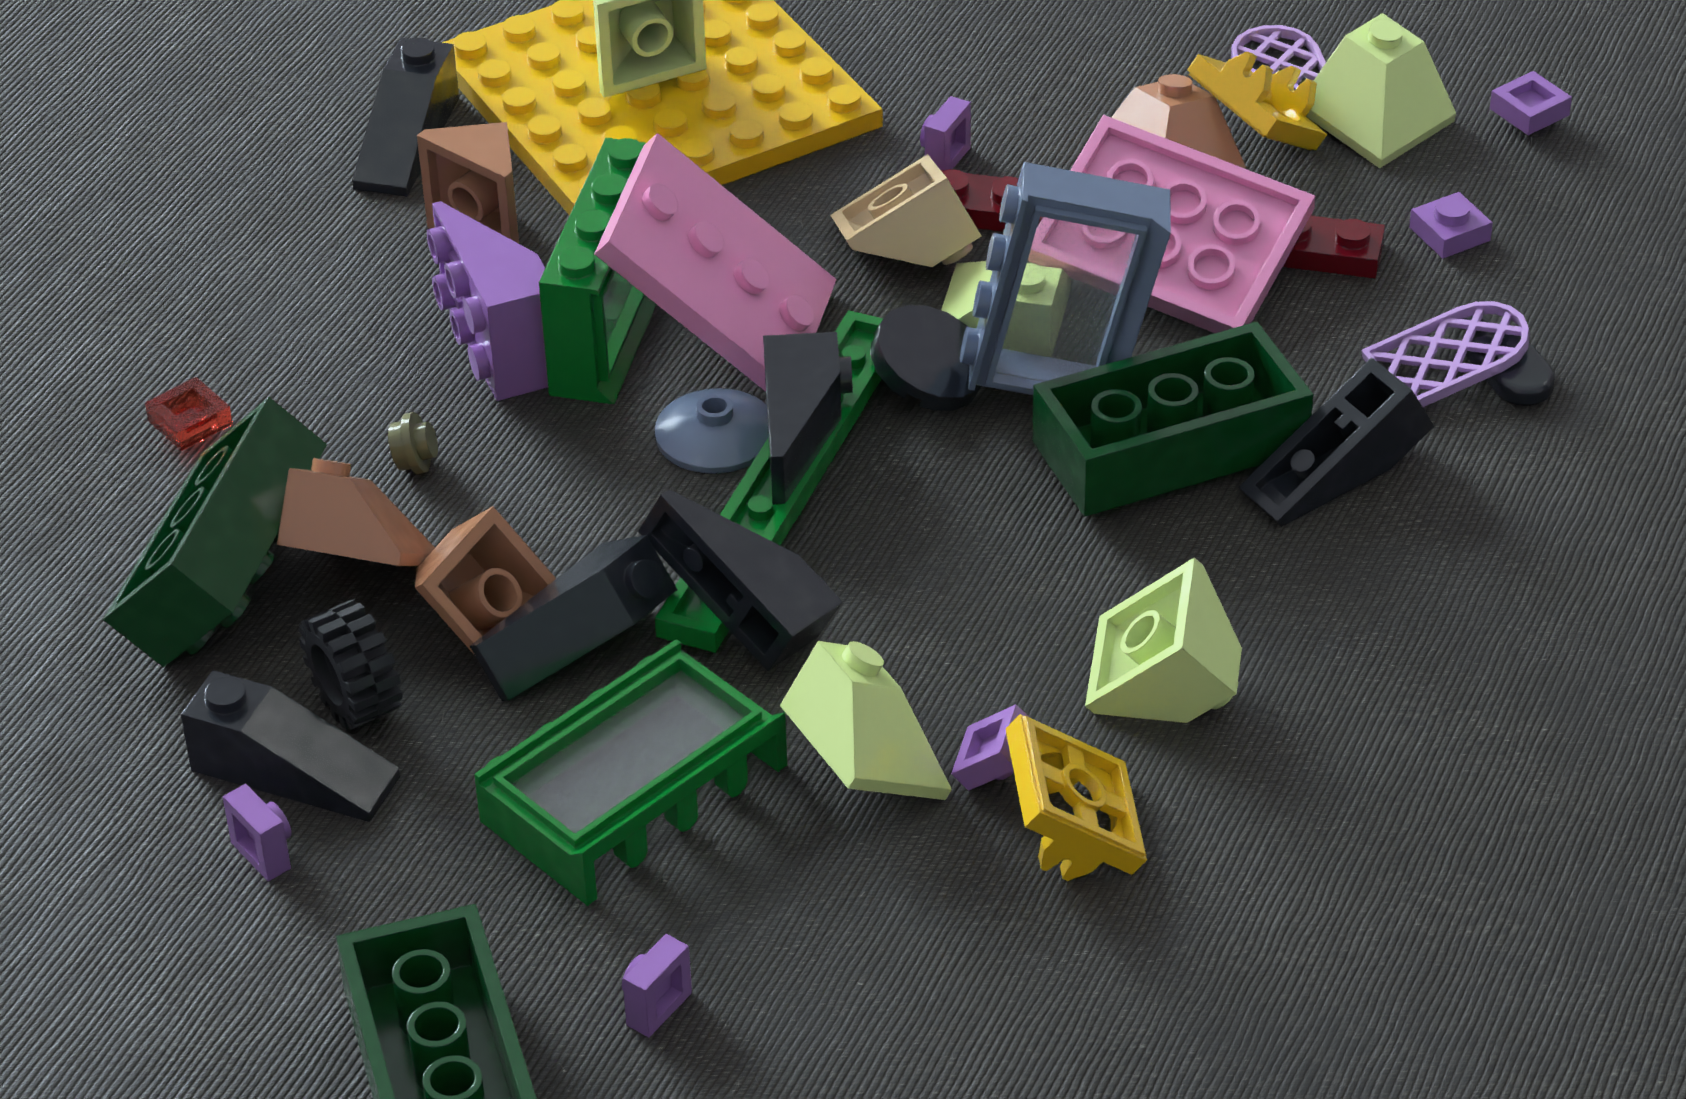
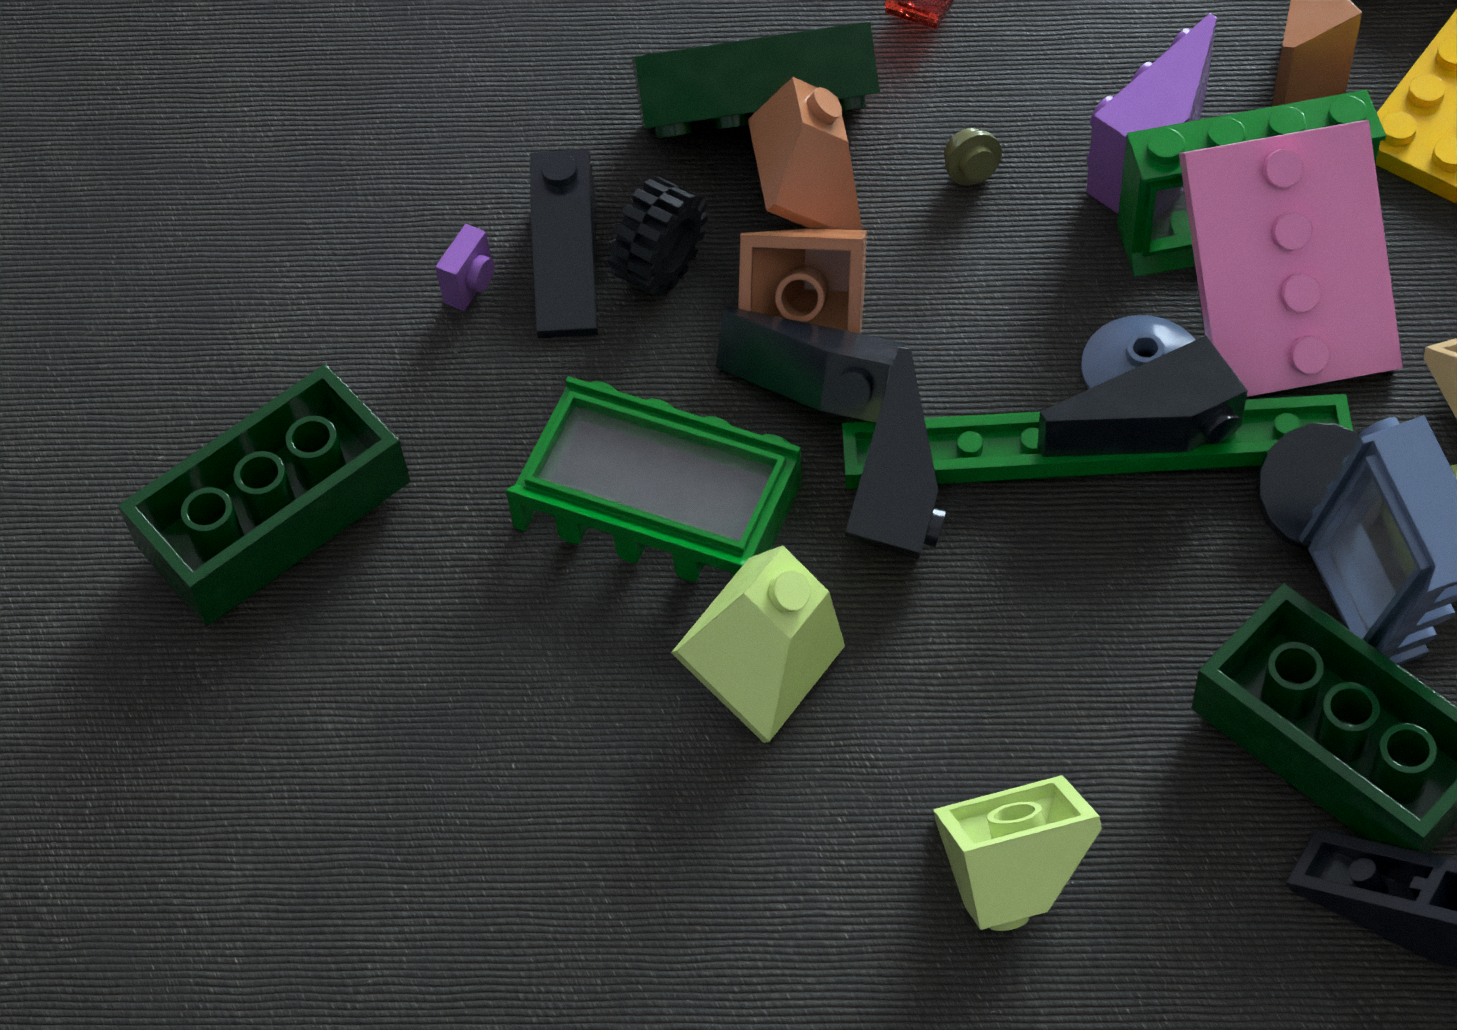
camera: 70 degrees right, 15 degrees up
(656, 984) = (417, 611): medium lavender plate -> none
(986, 750) = (818, 752): medium lavender plate -> none
(1054, 762) = (709, 824): yellow piece -> none

